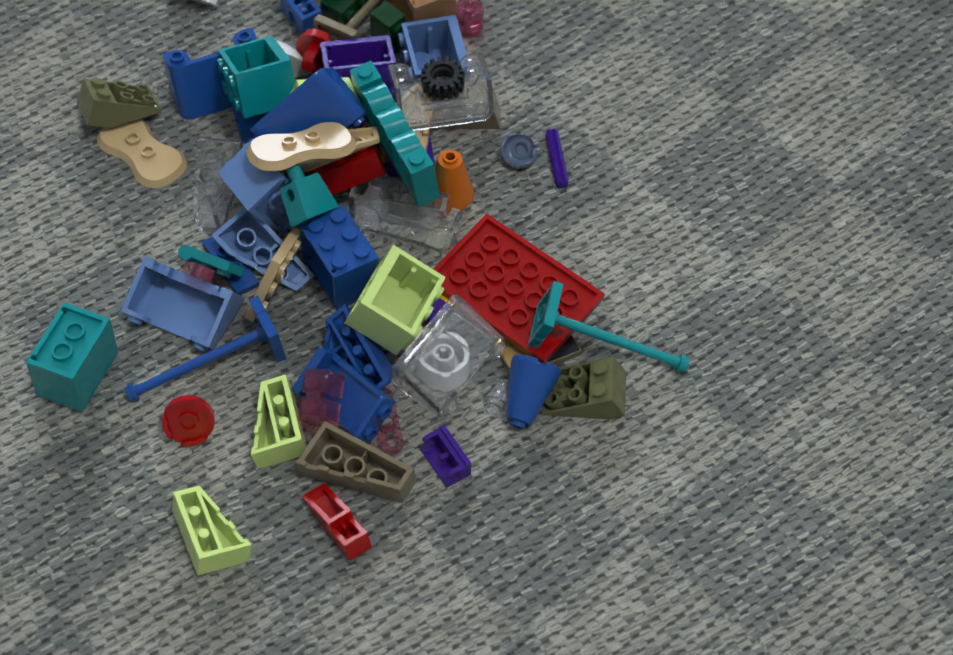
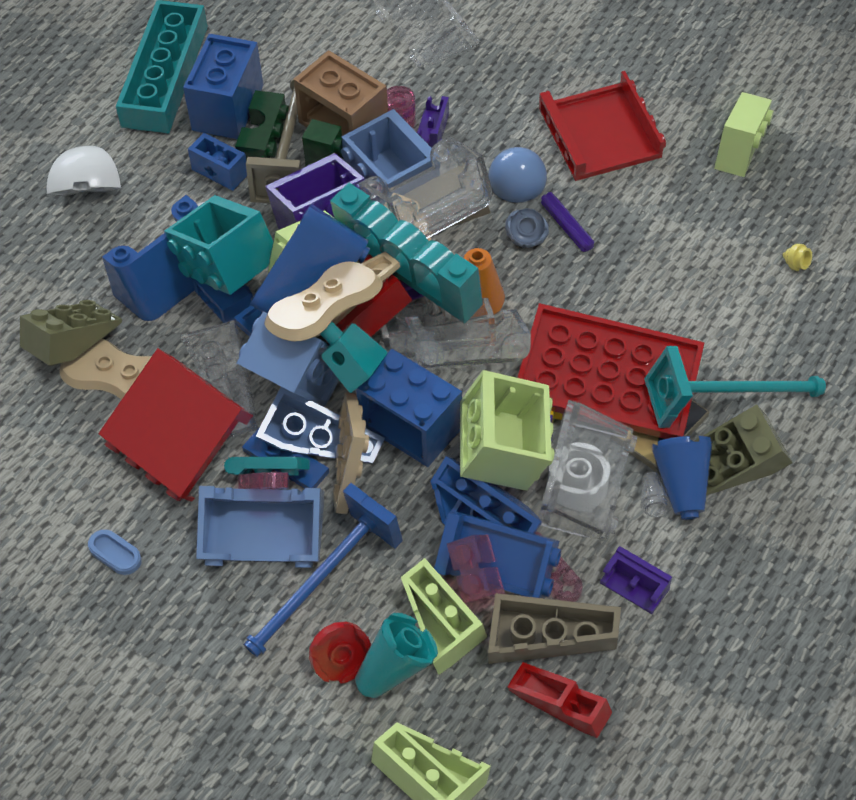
camera: 20 degrees left, 0 degrees up
(67, 284) = (114, 552): none -> medium blue tile
(72, 357) = (173, 632): teal container -> none
(153, 201) = (171, 424): none -> red panel
(225, 436) = (395, 655): none -> teal cone
(310, 50) = (254, 195): red tile -> none
(442, 68) = (422, 166): black tyre -> none
(493, 39) = (434, 121): none -> dark purple hinge
(537, 105) = (517, 175): none -> medium blue piece
(630, 92) = (602, 129): none -> red panel
(730, 255) = (798, 257): none -> light yellow plate
(743, 135) = (743, 133): none -> yellowish green wedge

